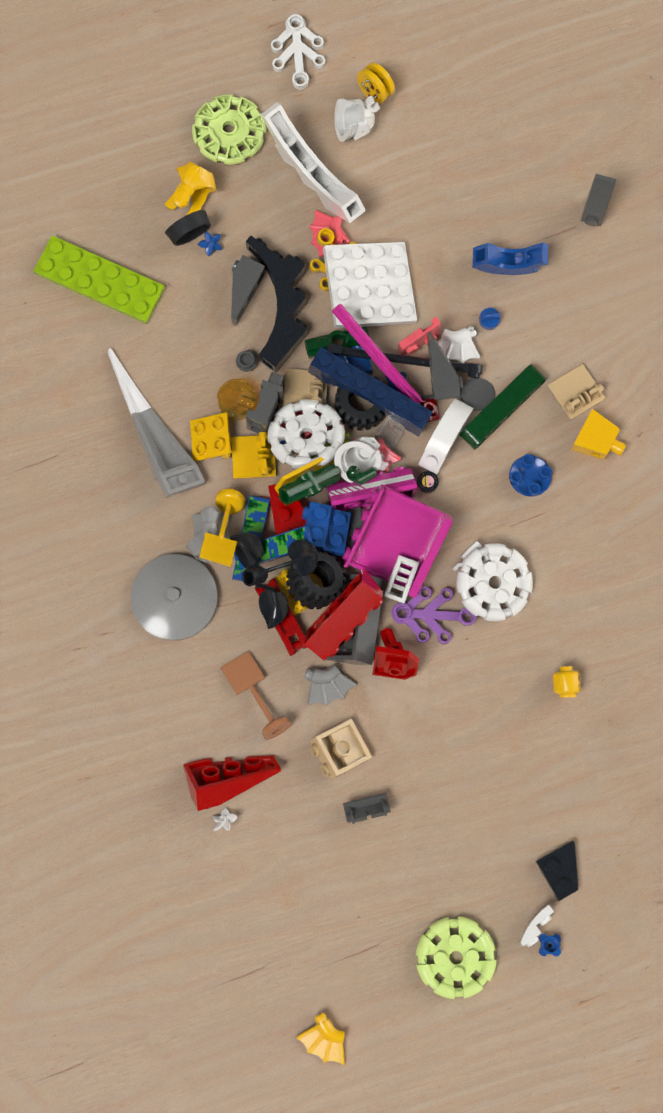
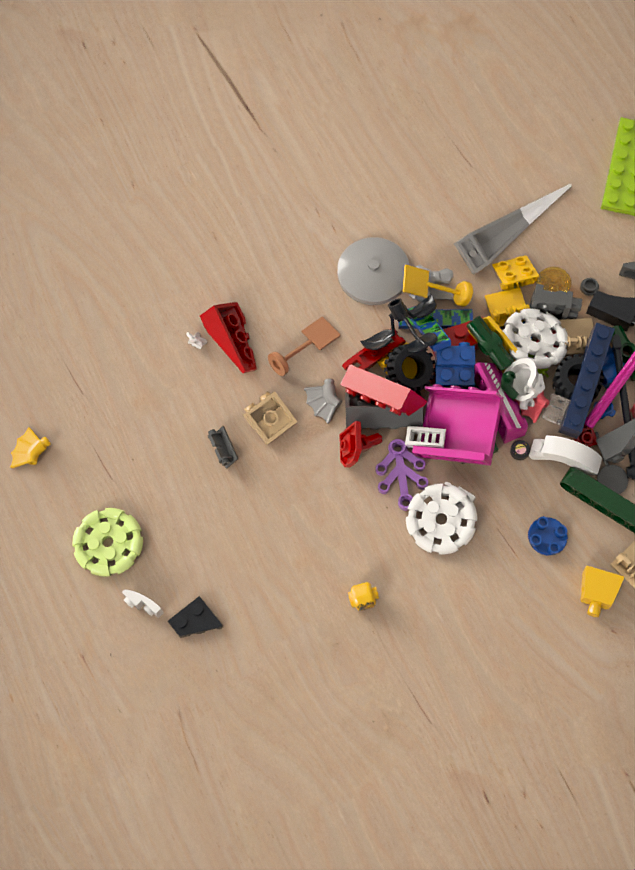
camera: 85 degrees right, 10 degrees down
(554, 949) = (124, 615): blue plate -> none

